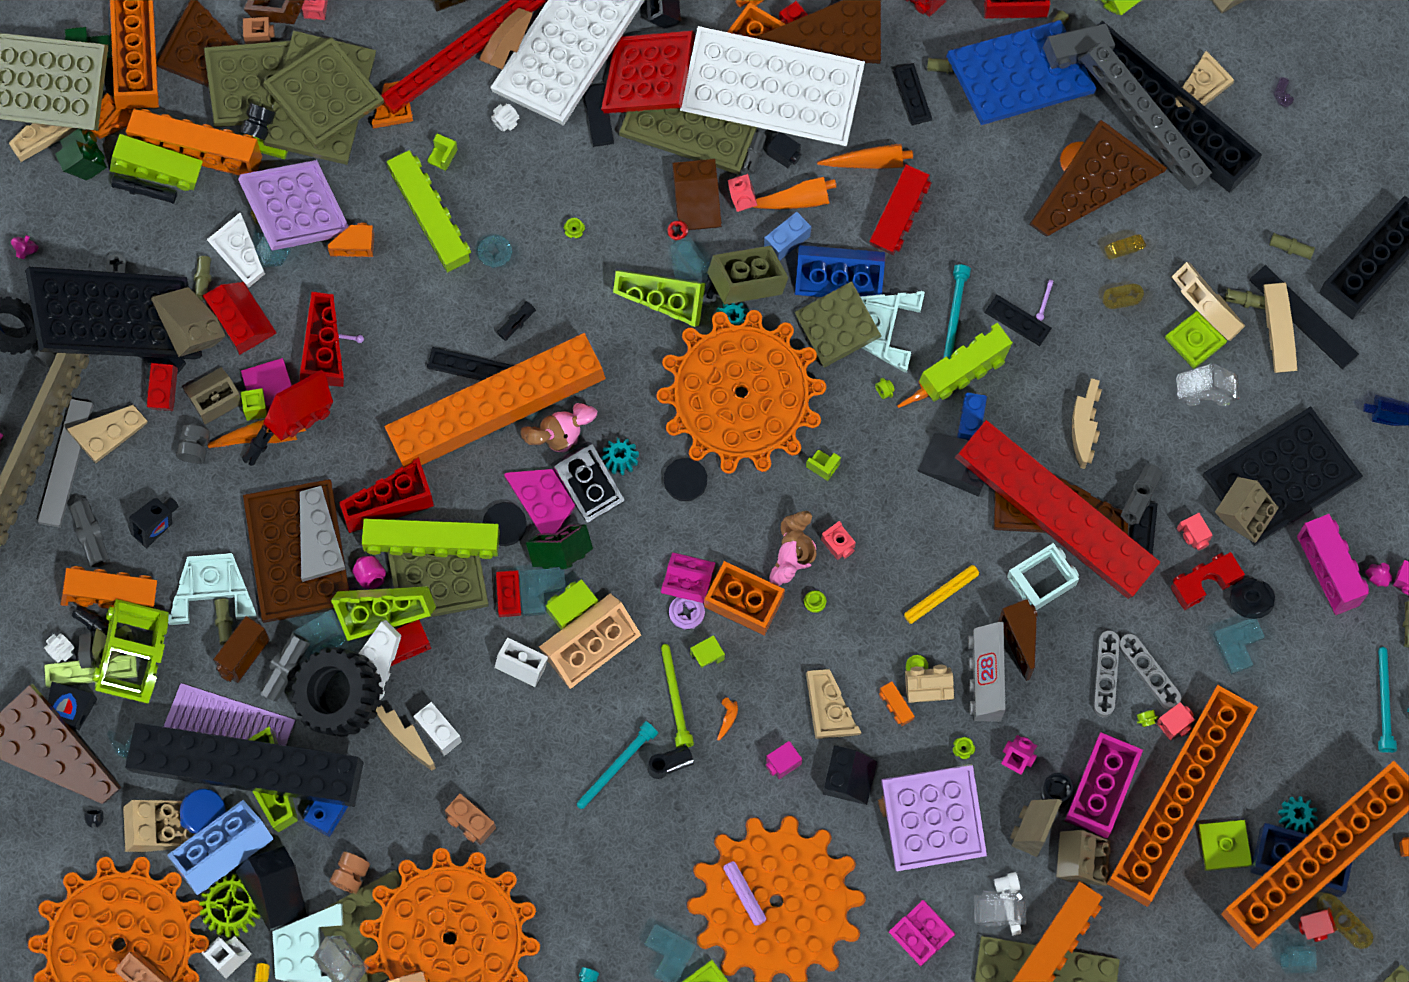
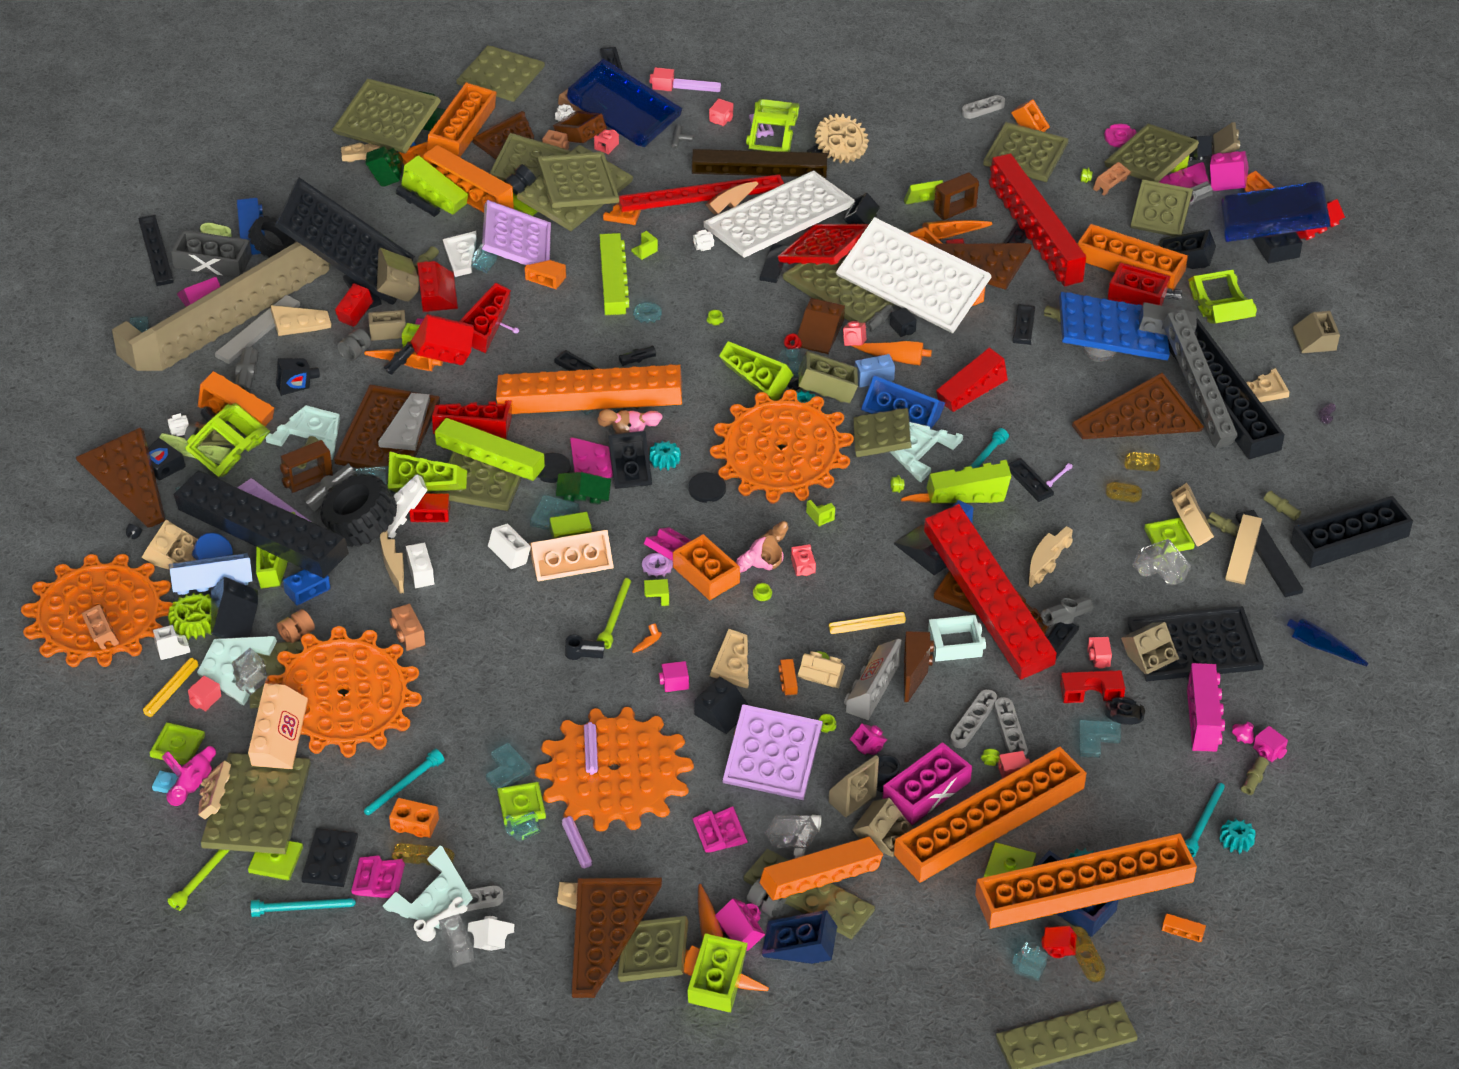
camera: 25 degrees right, 25 degrees down
(369, 572) = (432, 453): dark pink head -> none
(508, 593) = (526, 507): red plate -> none
(646, 733) = (578, 625): teal piece -> none
(872, 158) = (965, 347): orange piece -> none

